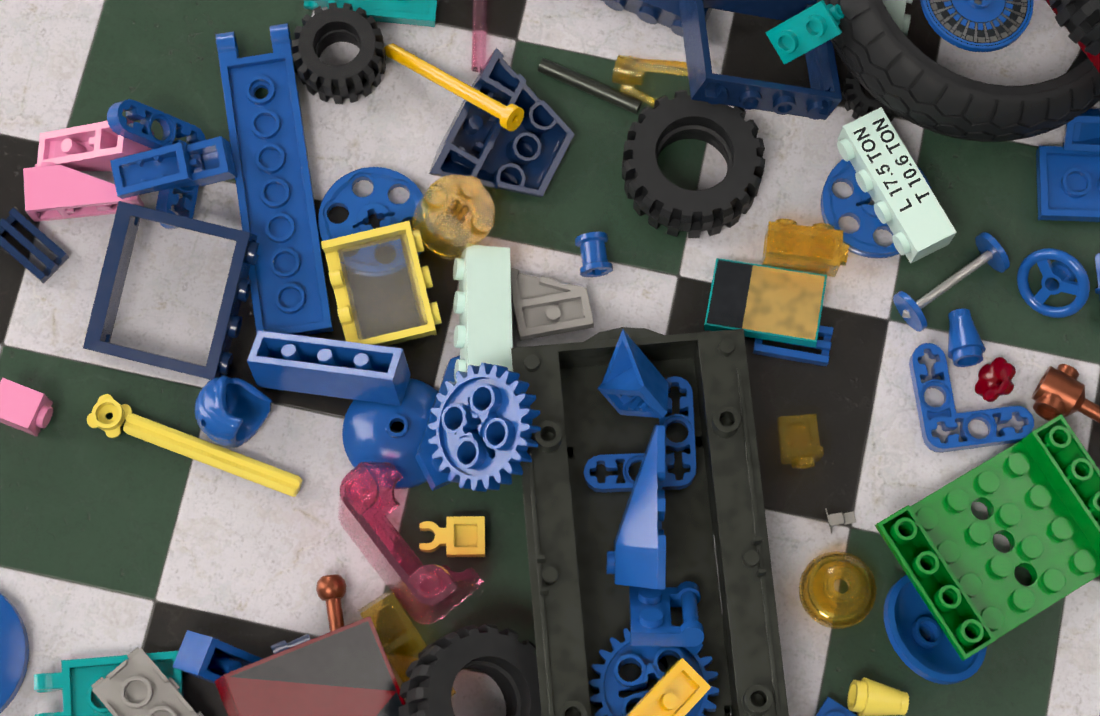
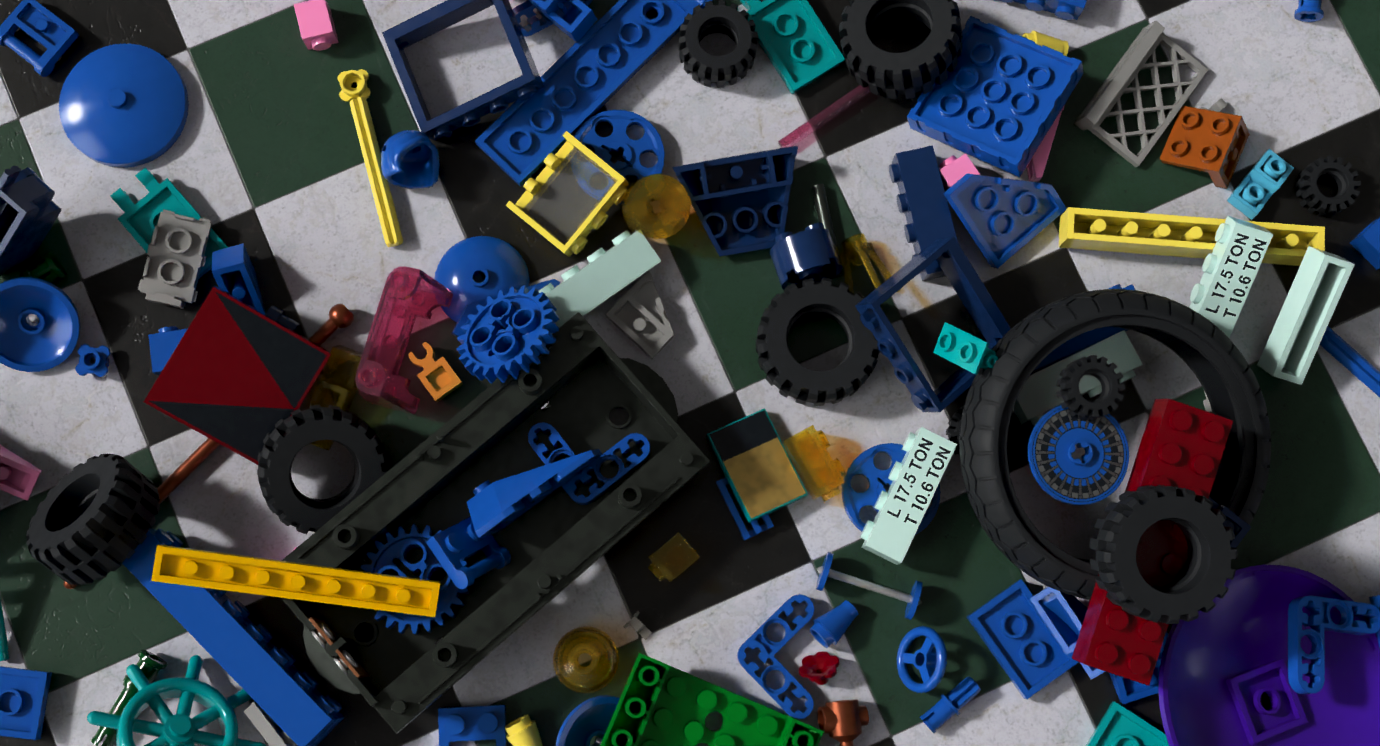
camera: 50 degrees right, 5 degrees up
(329, 367) = (485, 202): blue brick -> none
(510, 116) = (751, 191): yellow bar -> none
(593, 254) = (703, 321): blue bush -> none
(603, 118) = (805, 255): none -> dark blue brick
(634, 382) = (619, 414): blue slope -> none

